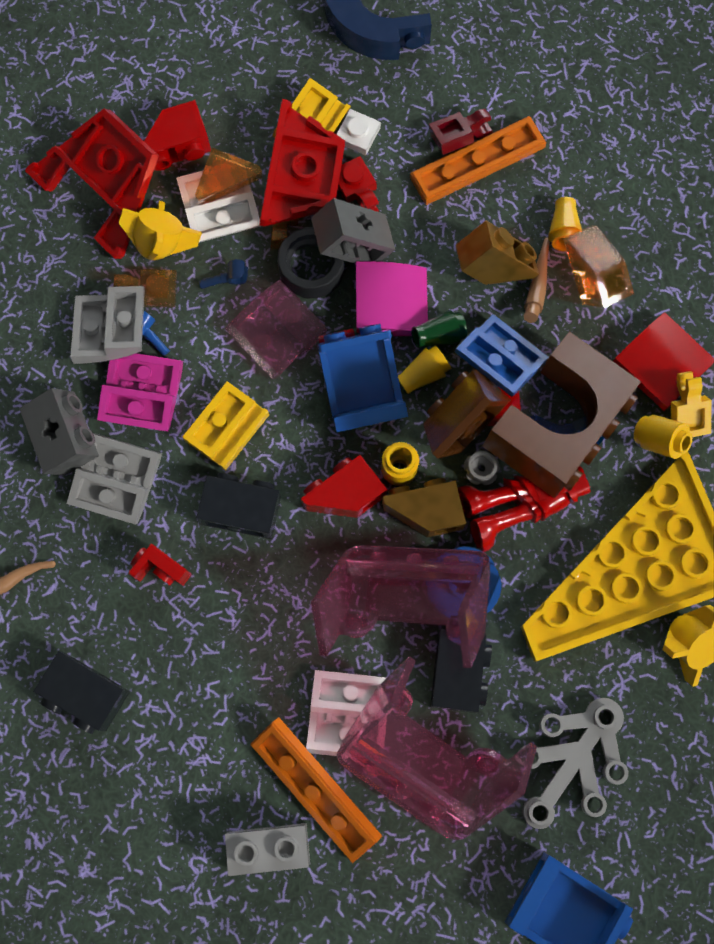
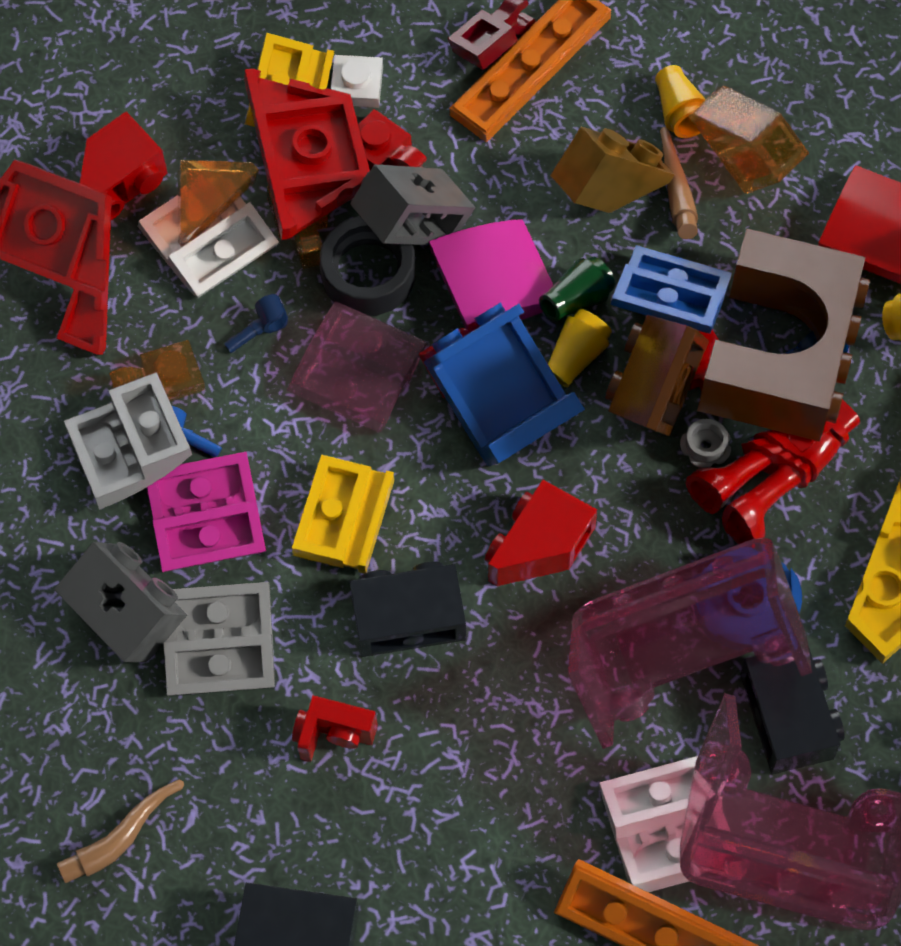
camera: 20 degrees left, 10 degrees down
(157, 232) = (145, 298): yellow piece -> none
(399, 453) = (599, 474): yellow brick -> none
(428, 509) = (660, 520): pearl gold slope -> none

